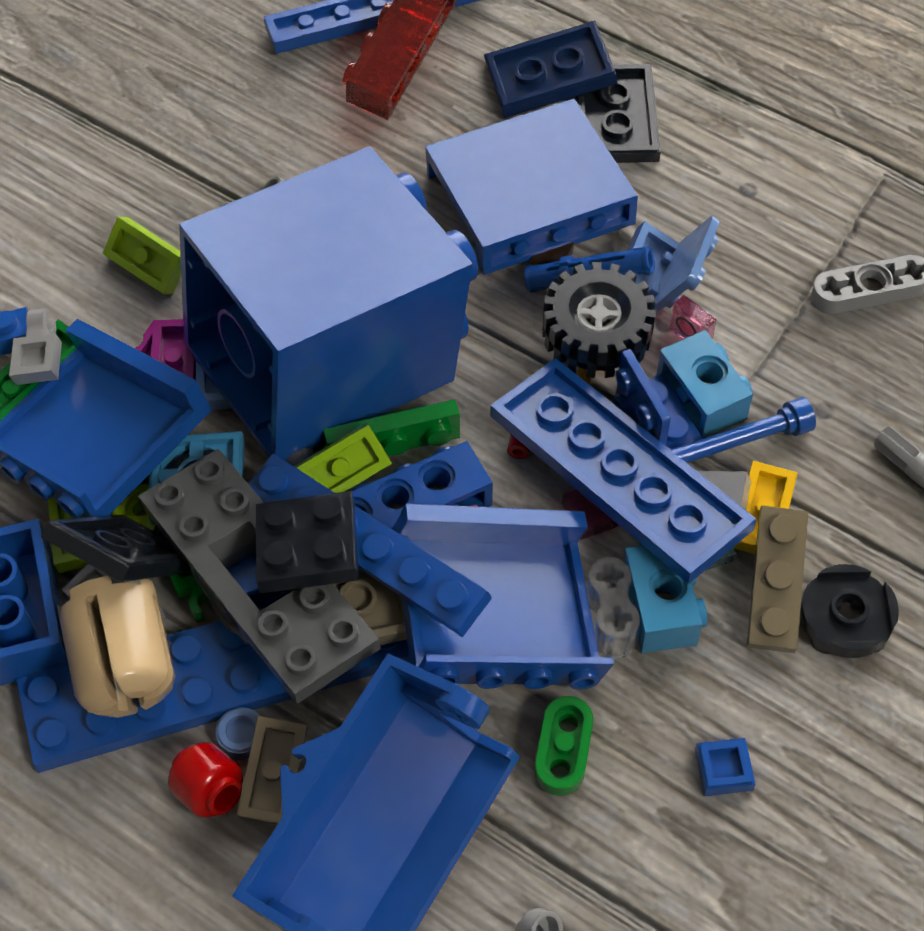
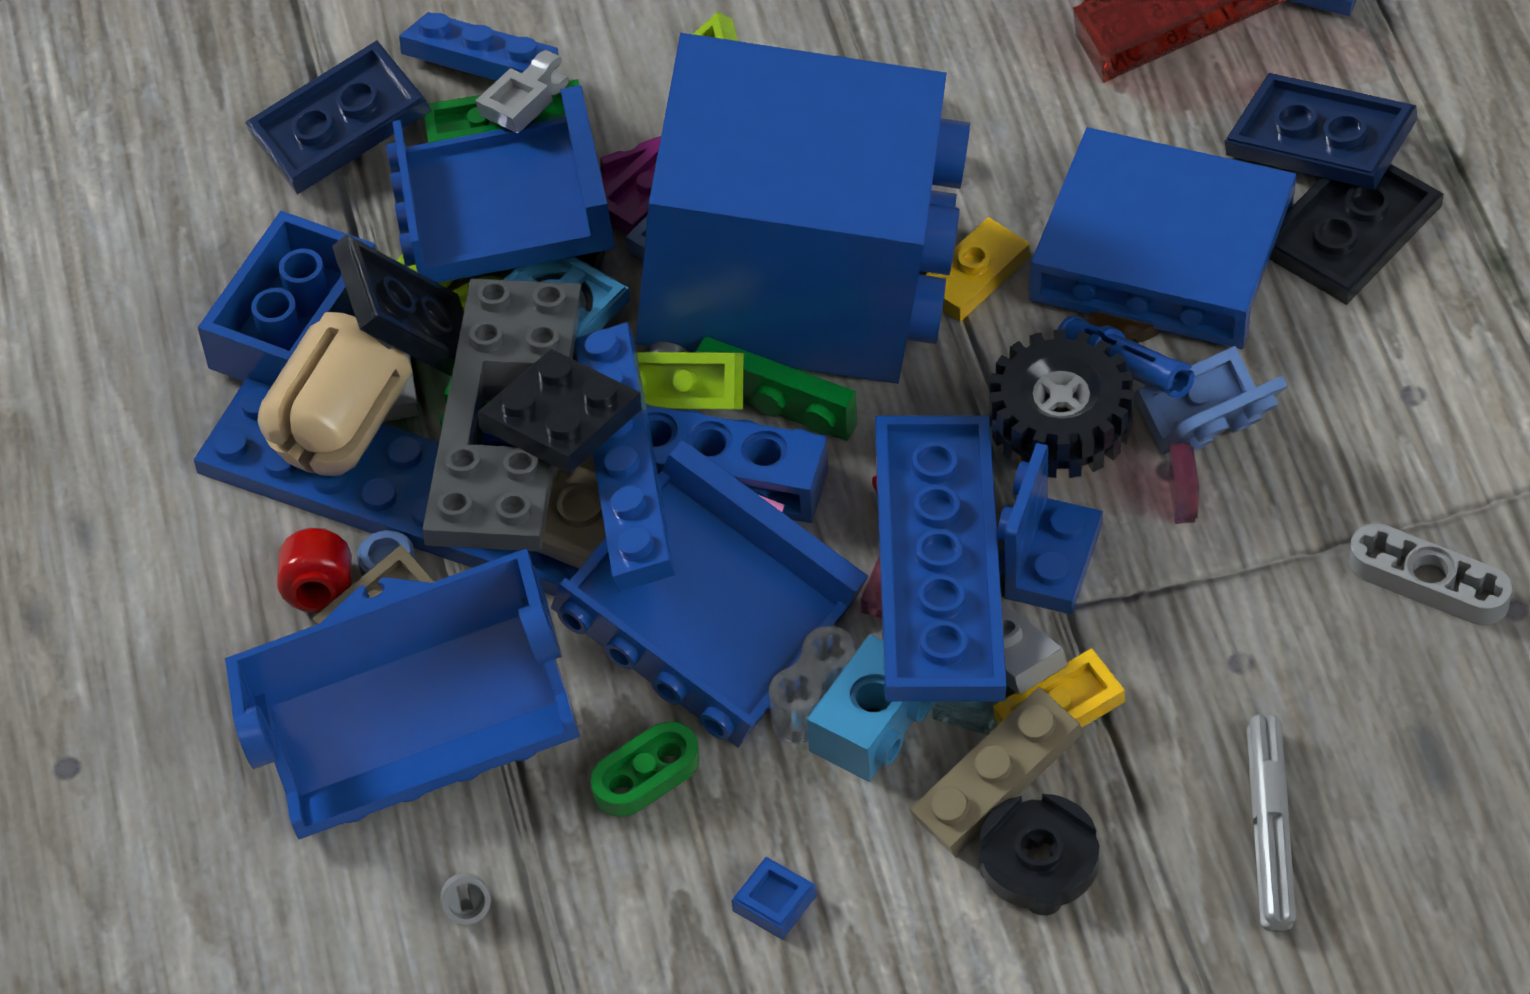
camera: 45 degrees right, 5 degrees down
(702, 360) = (1129, 519): dark azure brick -> none
(794, 418) = (1184, 641): blue piece -> none

